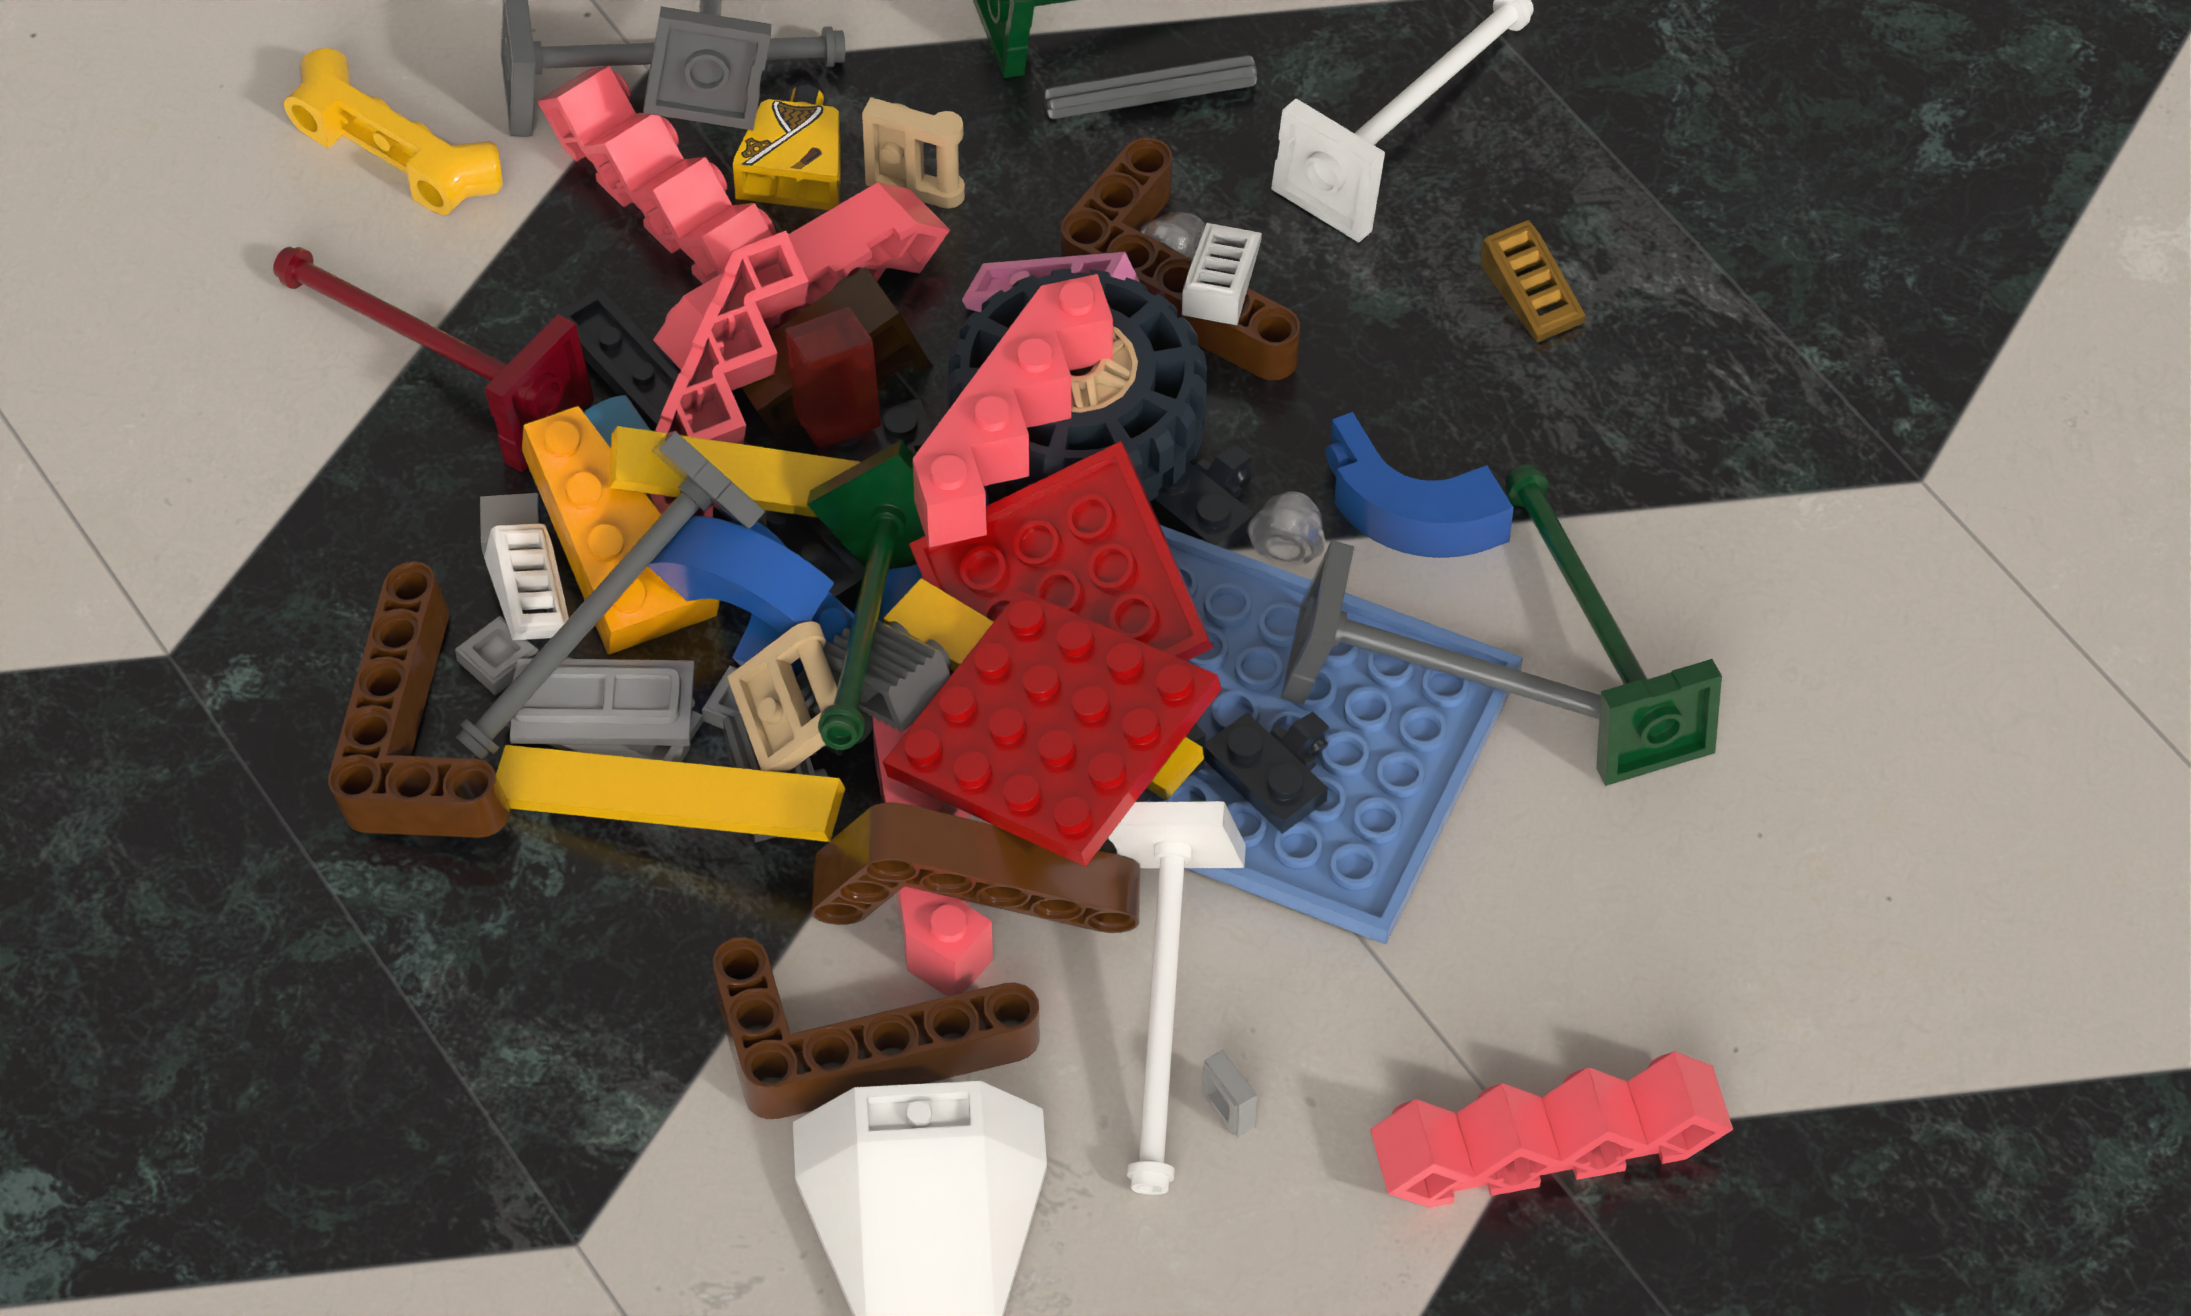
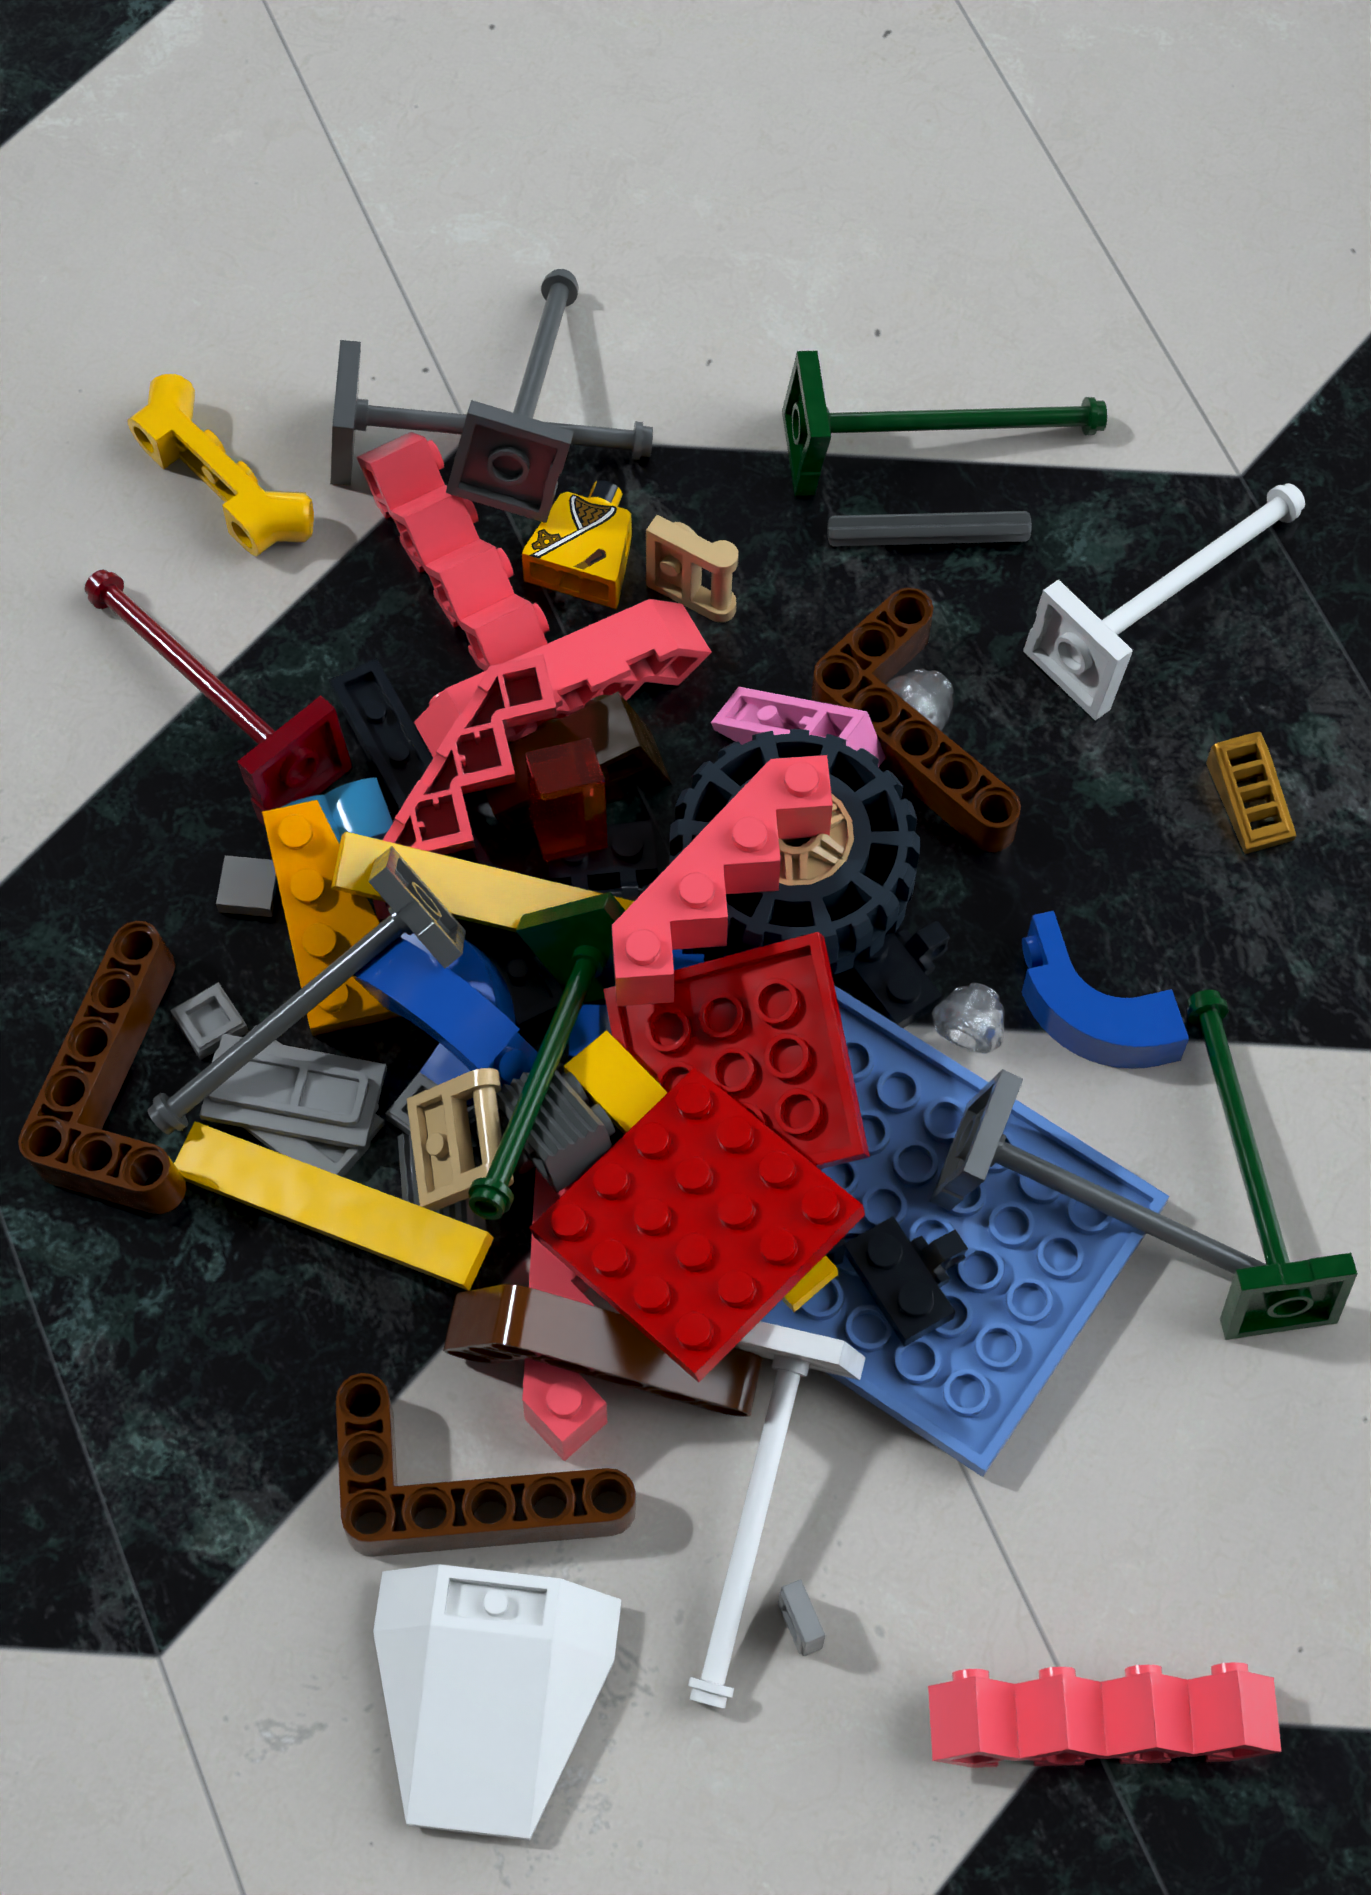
camera: 10 degrees right, 10 degrees up
(526, 548) = (249, 921): white slope -> none
(1214, 301) = (943, 776): white slope -> none

